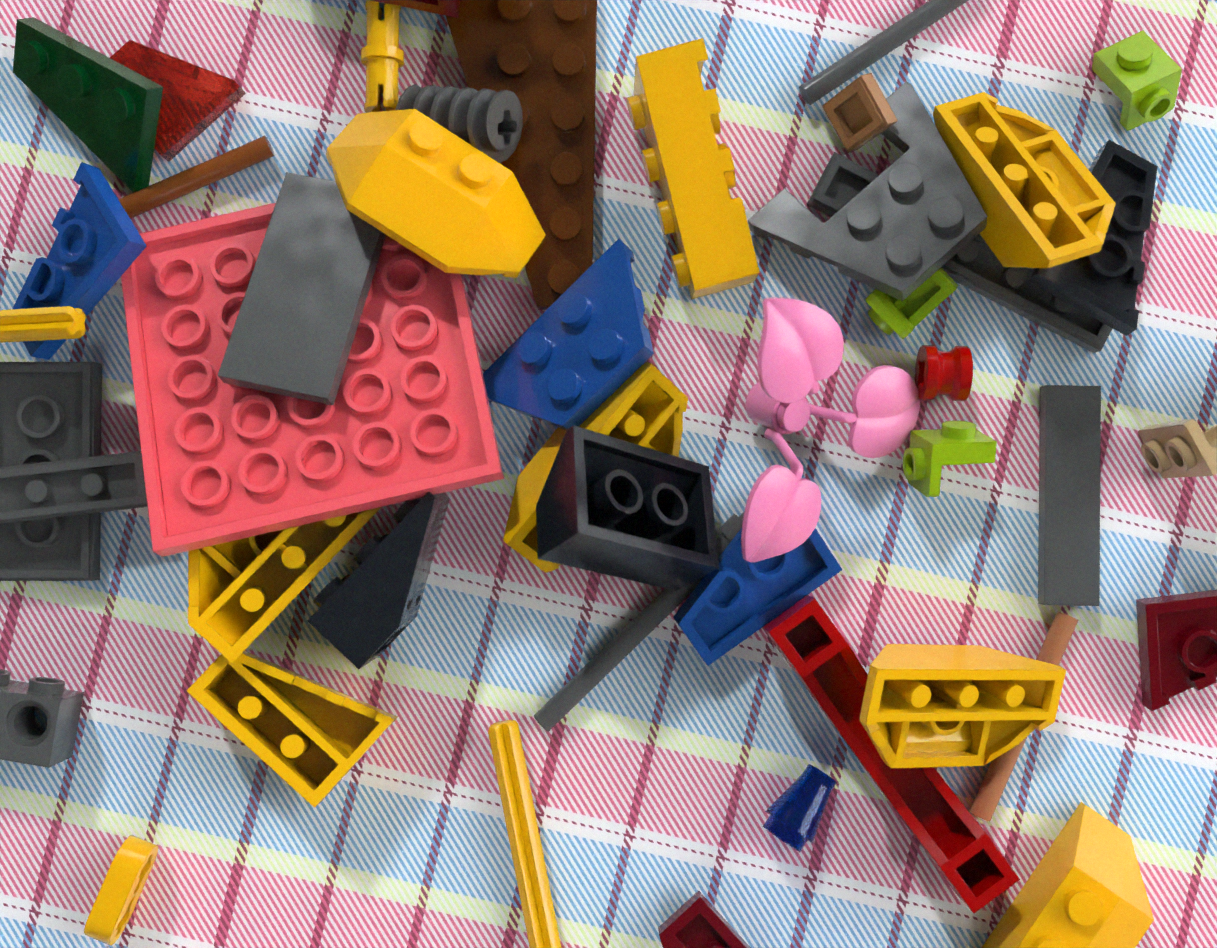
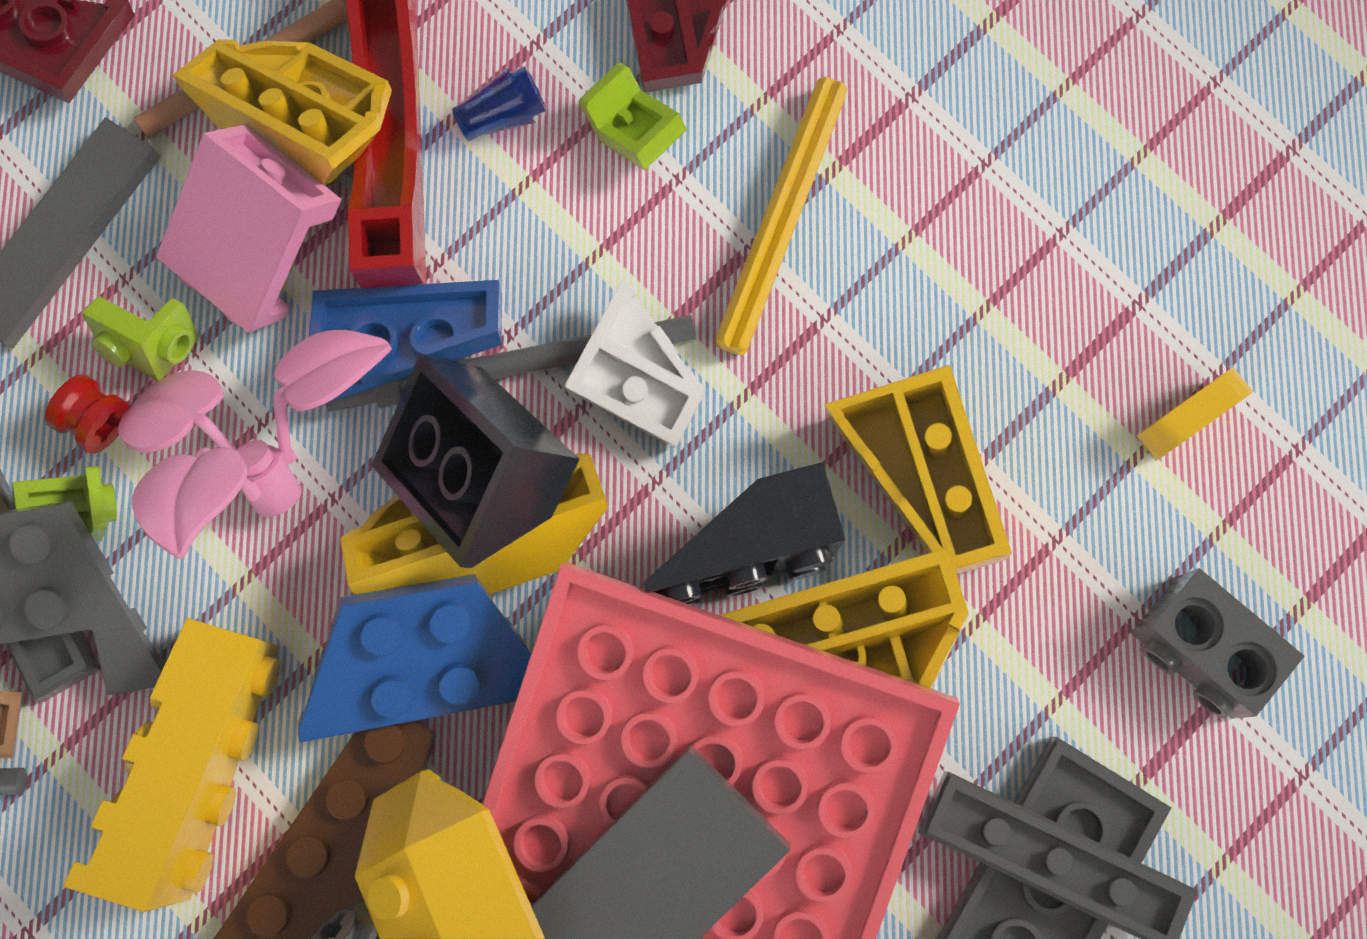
camera: 150 degrees left, 10 degrees down
(557, 659) = (636, 372): none -> white wing
(689, 860) = (629, 118): none -> lime bracket
(921, 585) = (243, 224): none -> bright pink panel

